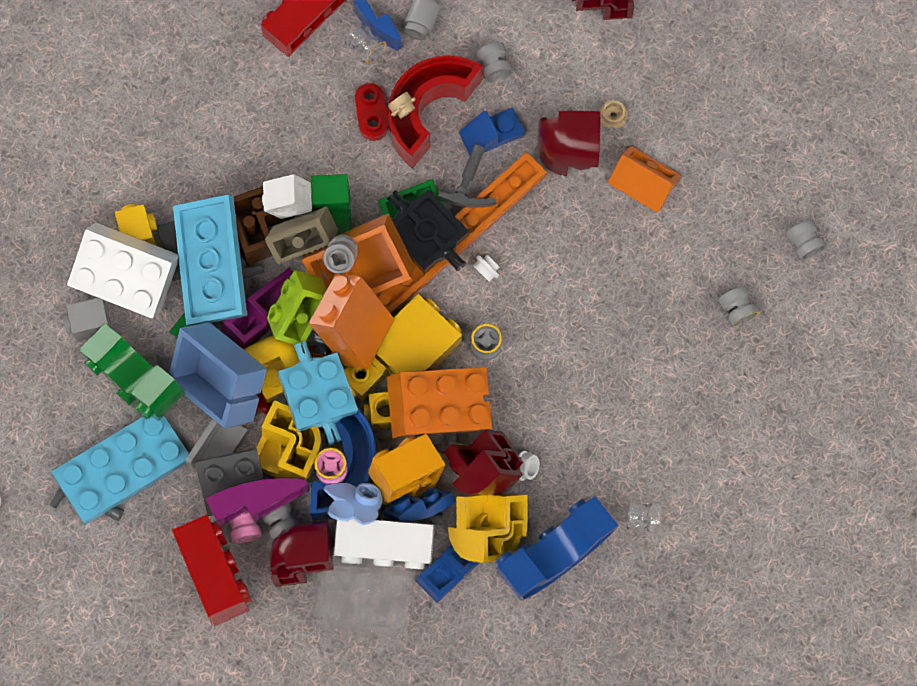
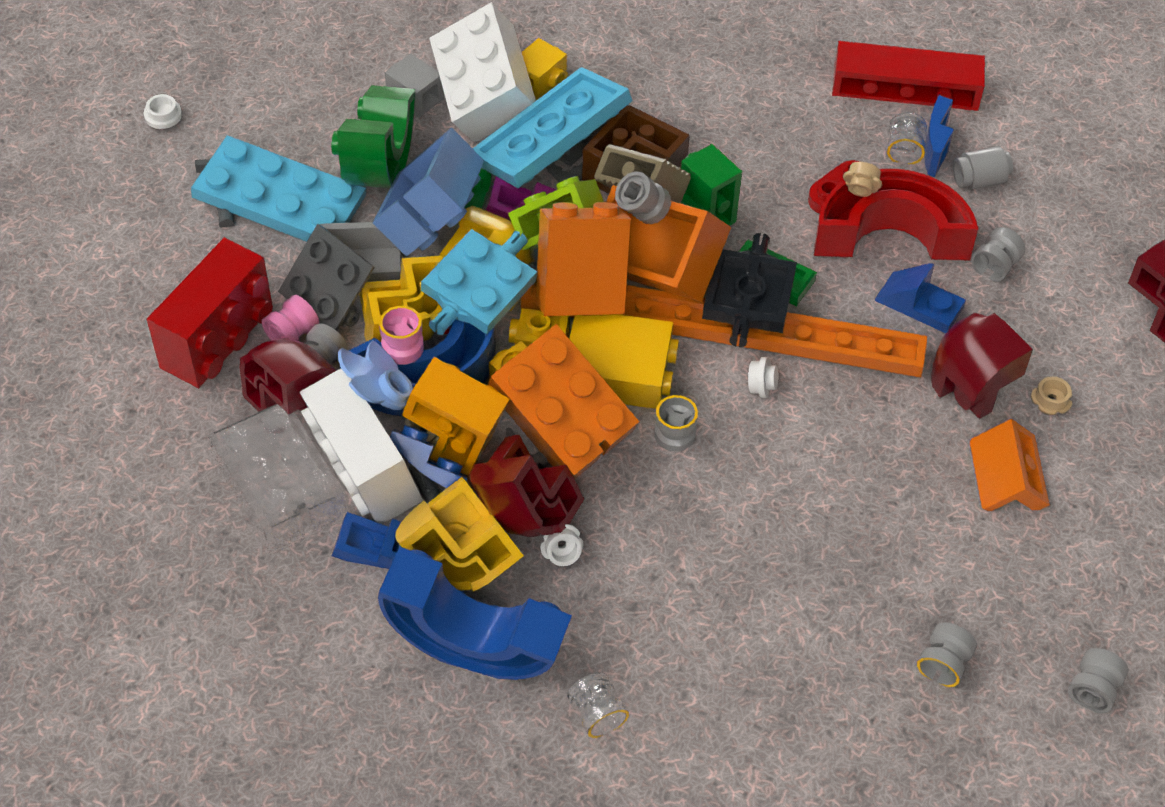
camera: 55 degrees right, 20 degrees down
(255, 497) = (316, 297): magenta slope -> none
(287, 196) = (670, 134): white brick -> none
(468, 174) = (816, 303): dark grey piece -> none

